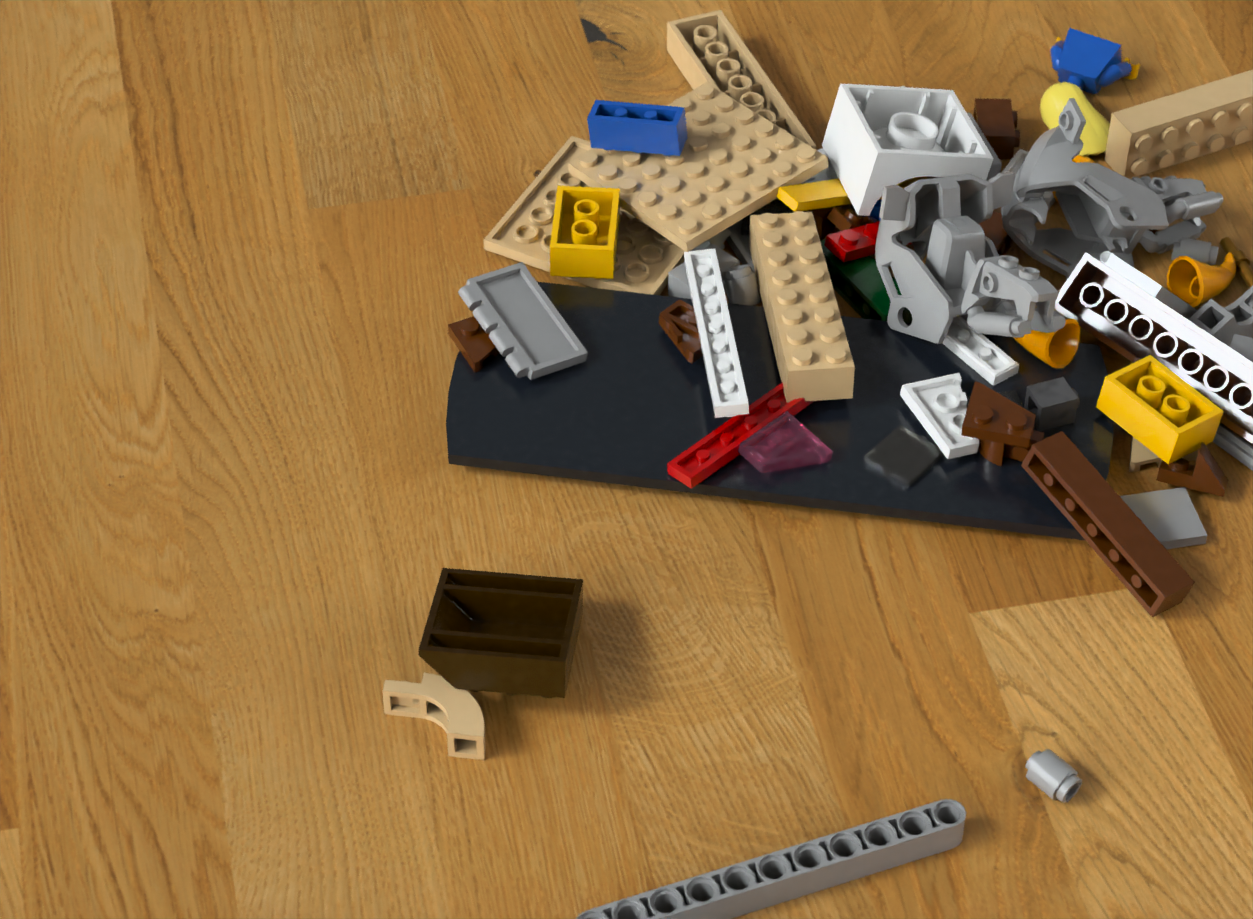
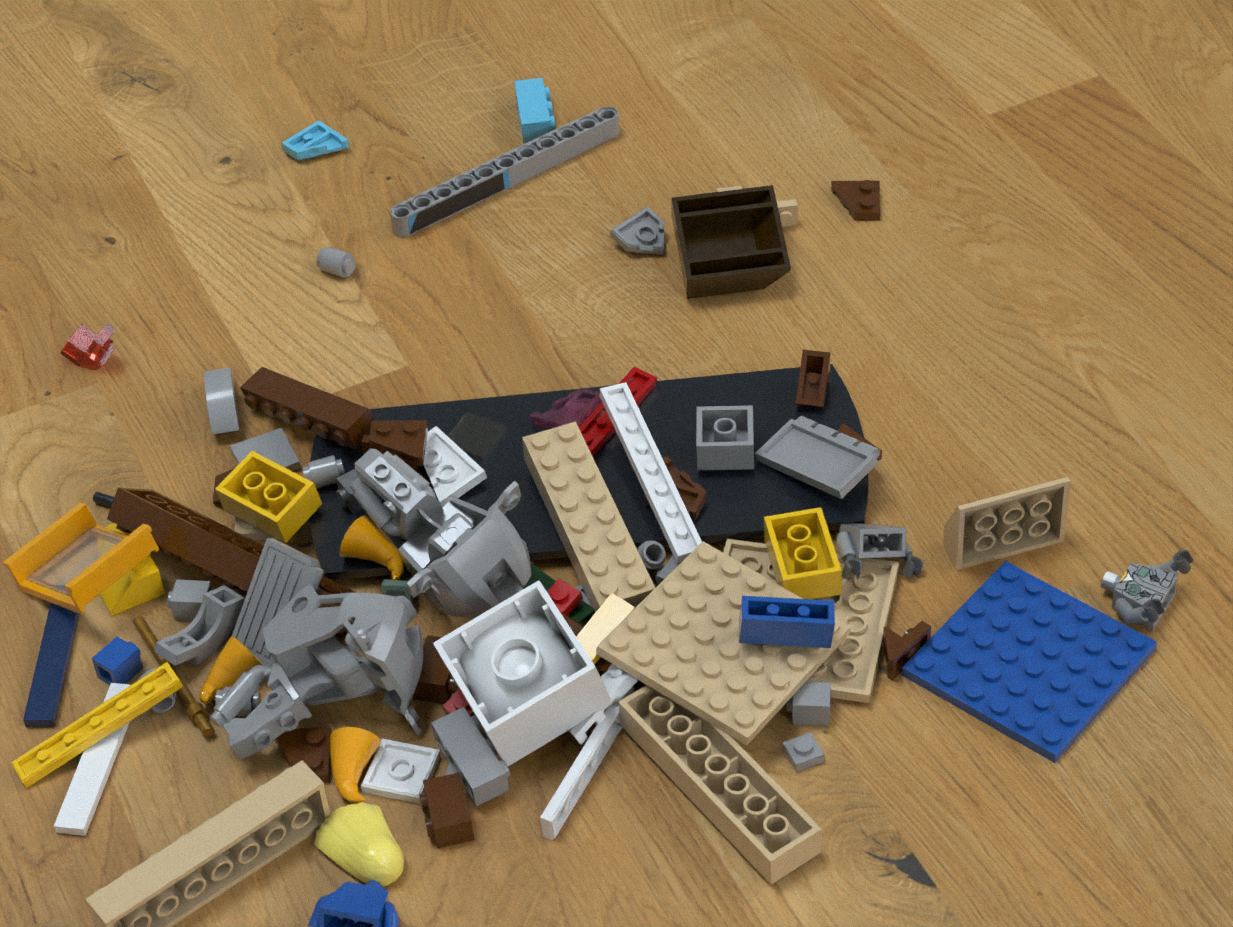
camera: 170 degrees right, 0 degrees up
(261, 166) = (1146, 590): none -> light grey torso
(283, 714) = (860, 198): none -> reddish brown wing
(359, 222) = (1007, 524): none -> tan slope
(403, 151) = (1029, 660): none -> blue plate
(483, 409) = (813, 378): none -> reddish brown slope
(508, 241) = (874, 542): none -> light grey torso
(515, 168) = (900, 649): none -> reddish brown slope
(611, 719) = (641, 233): none -> light grey plate
(617, 357) = (725, 437): none -> light grey brick
(1093, 434) = (324, 471): none -> light grey brick
(1222, 593) = (221, 400): none -> light grey arch

